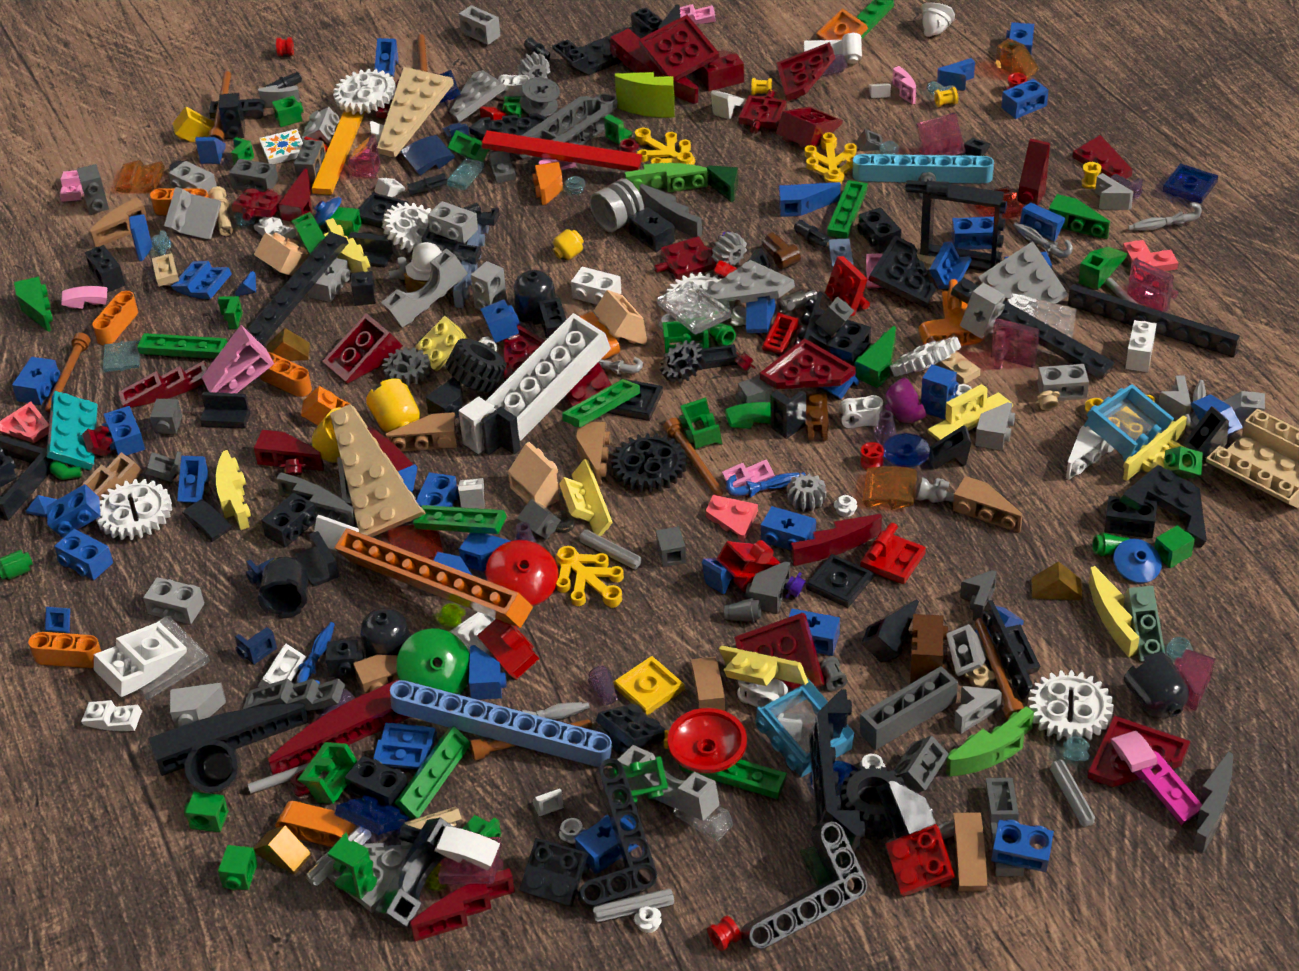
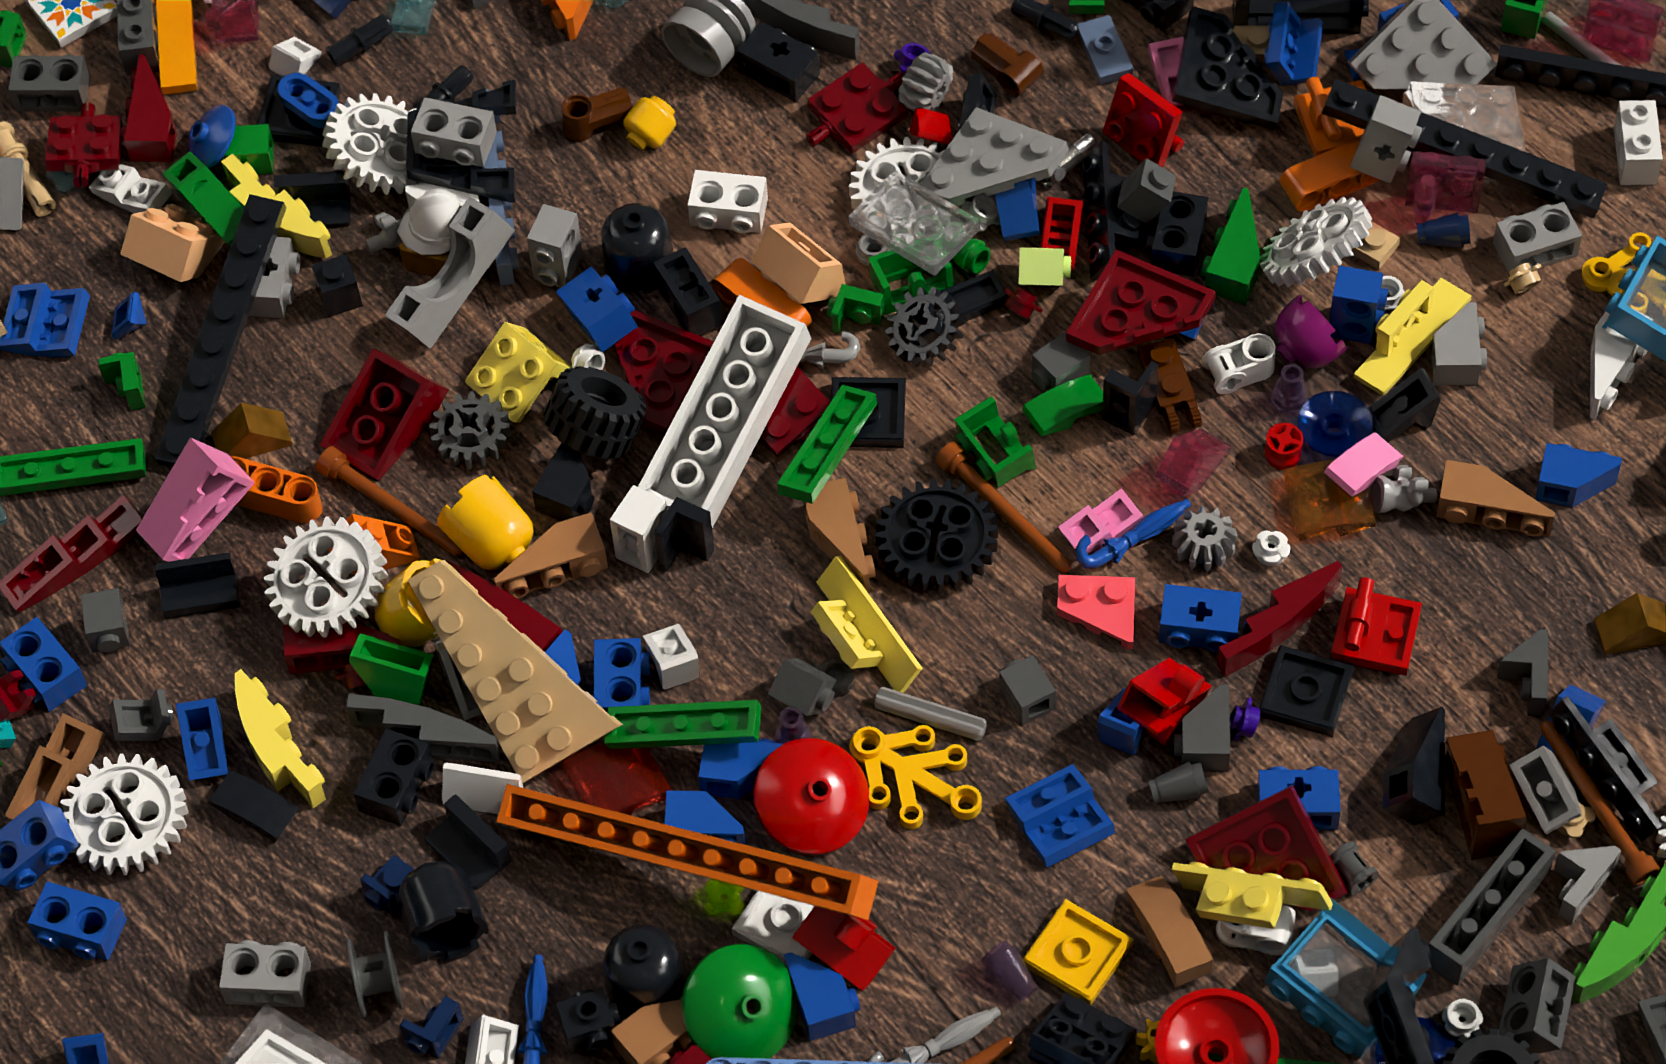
camera: 15 degrees left, 15 degrees up
(232, 608) = (374, 974): none -> dark grey piece
(276, 421) = (299, 602): none -> white gear
(310, 465) = (391, 669): none -> green slope
(325, 370) = (334, 465): none -> dark orange piece
(383, 200) = (311, 103): none -> blue plate
(533, 235) = (585, 114): none -> reddish brown piece
(534, 477) = (768, 611): light nougat slope -> none
(648, 346) = (855, 303): none -> green bracket
(666, 614) = (1059, 815): none -> blue slope
(762, 345) = (1043, 266): none -> yellowish green brick
(812, 453) = (1191, 461): none -> clear pink slope
(913, 468) = (1362, 464): none -> bright pink slope
(1009, 370) = (1445, 231): none -> dark blue cone
(1044, 501) = (1574, 475): none -> blue slope

